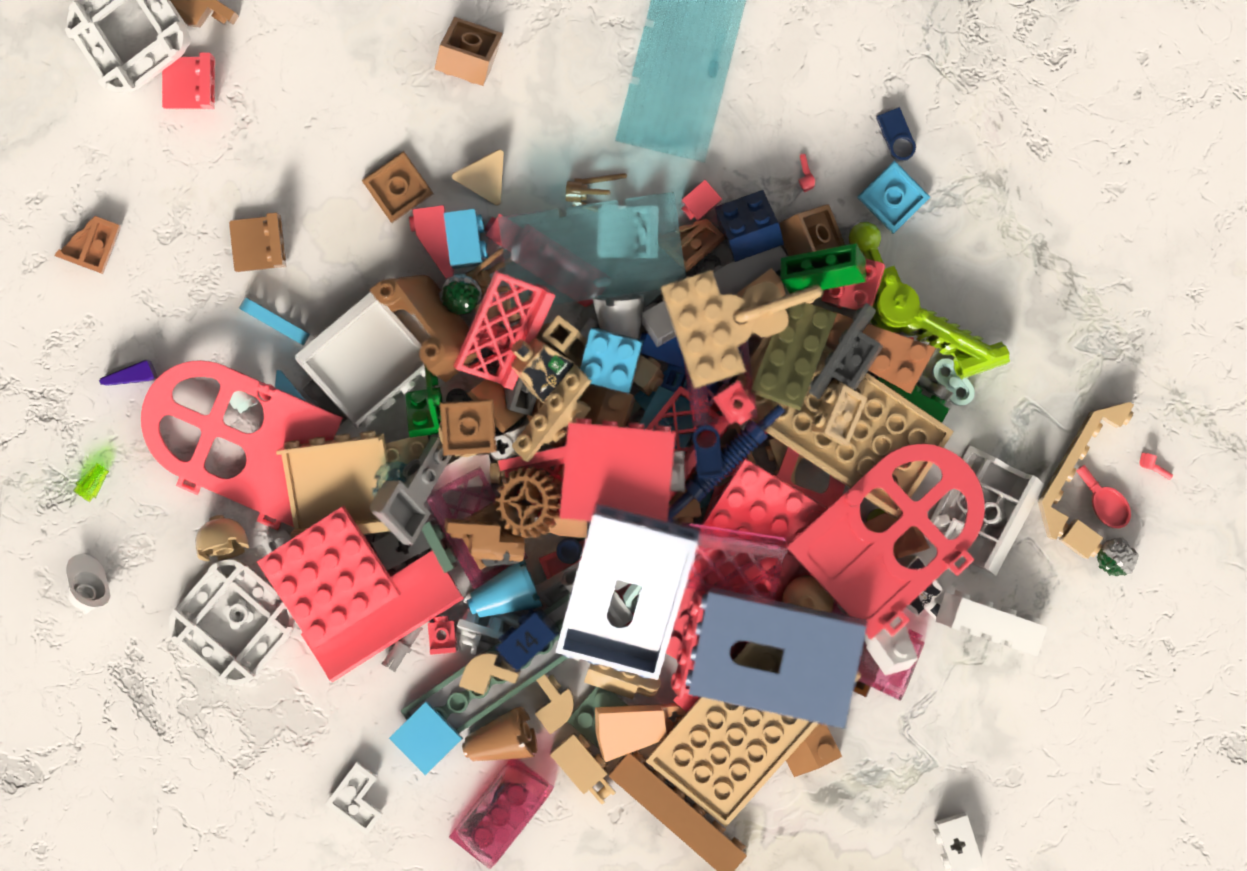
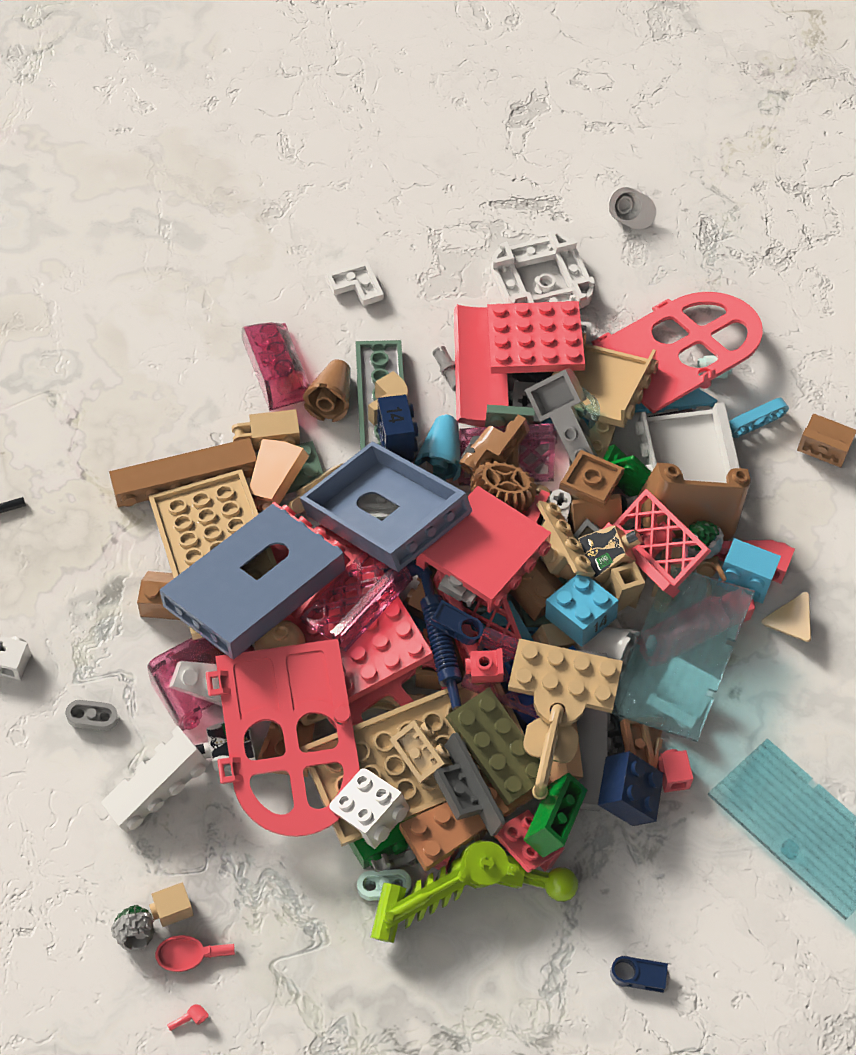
camera: 120 degrees right, 30 degrees down
(91, 482) = (703, 247): clear neon green cone -> none
(139, 372) = (770, 313): dark purple slope -> none
(220, 538) = (611, 297): tan cylinder -> none
(397, 187) = (818, 558): medium nougat tile -> none
(426, 738) = (369, 342): medium azure tile -> none
(447, 645) = (437, 396): coral brick -> none
(469, 627) = (424, 418): white hips -> none
(559, 708) = (329, 442): tan brick -> none
(577, 191) = (737, 682): medium nougat plant -> none
(808, 181) = (641, 872): coral hand -> none
(811, 231) = (591, 844): medium nougat slope -> none
(893, 197) = (583, 934): medium azure plate -> none
(915, 426) = (370, 806): none -> white bracket
(960, 723) = (93, 714): none -> light grey plate
(1007, 503) = (249, 855): white piece -> none
(1053, 520) = (209, 894): tan slope -> none

